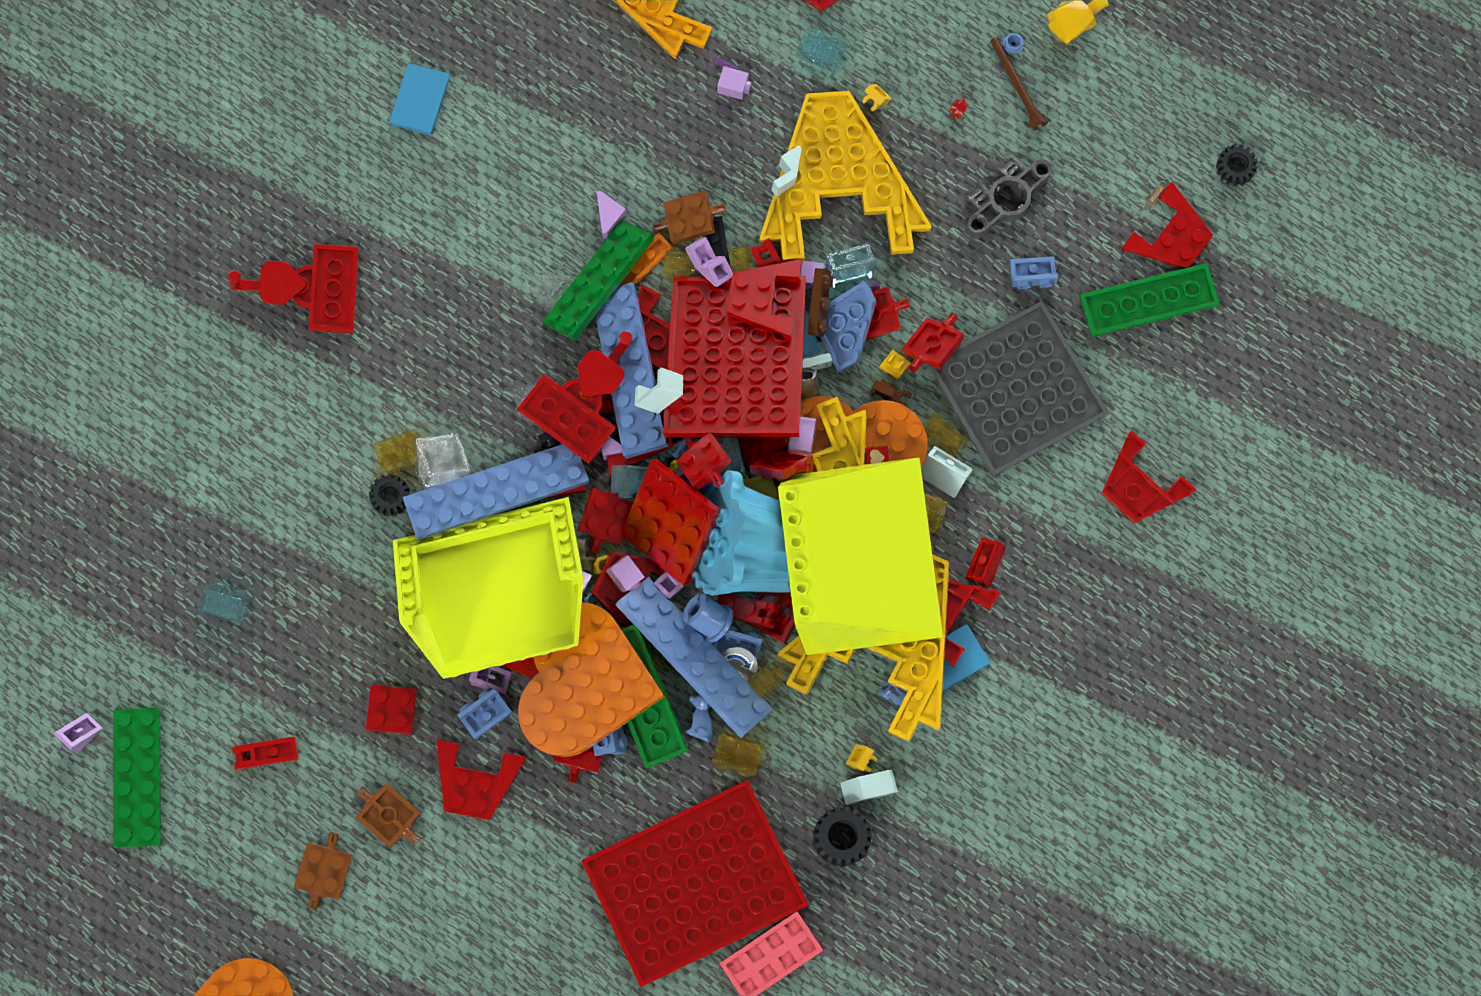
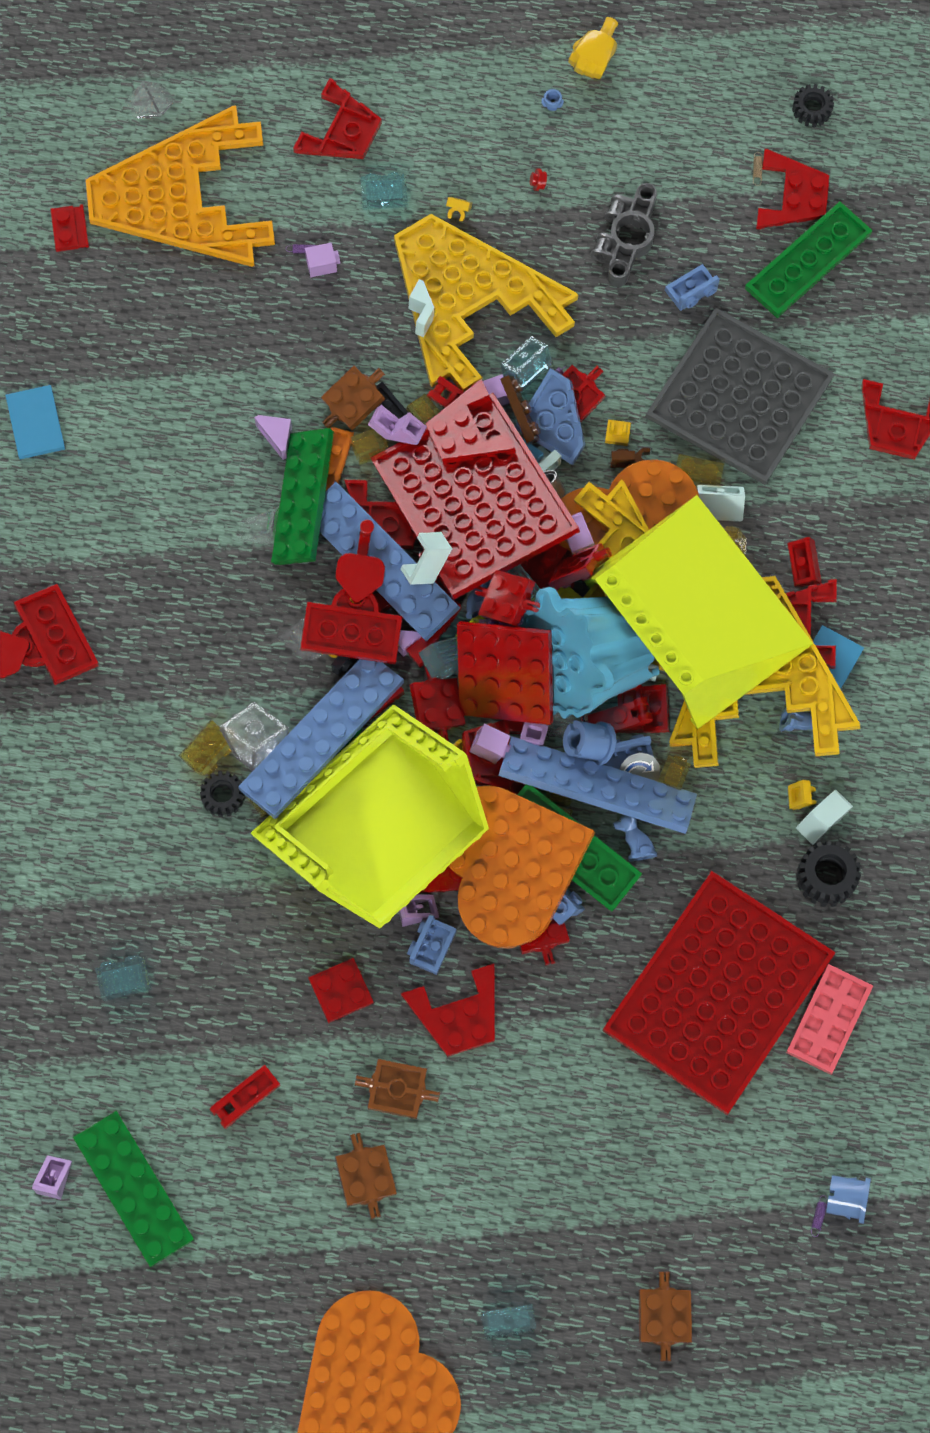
camera: 30 degrees left, 5 degrees down
(737, 754) = (688, 852): clear yellow bracket -> none
(877, 454) = (655, 514): tile -> none
(933, 343) = (642, 393): red plate -> none
(1035, 116) = (612, 153): reddish brown piece -> none

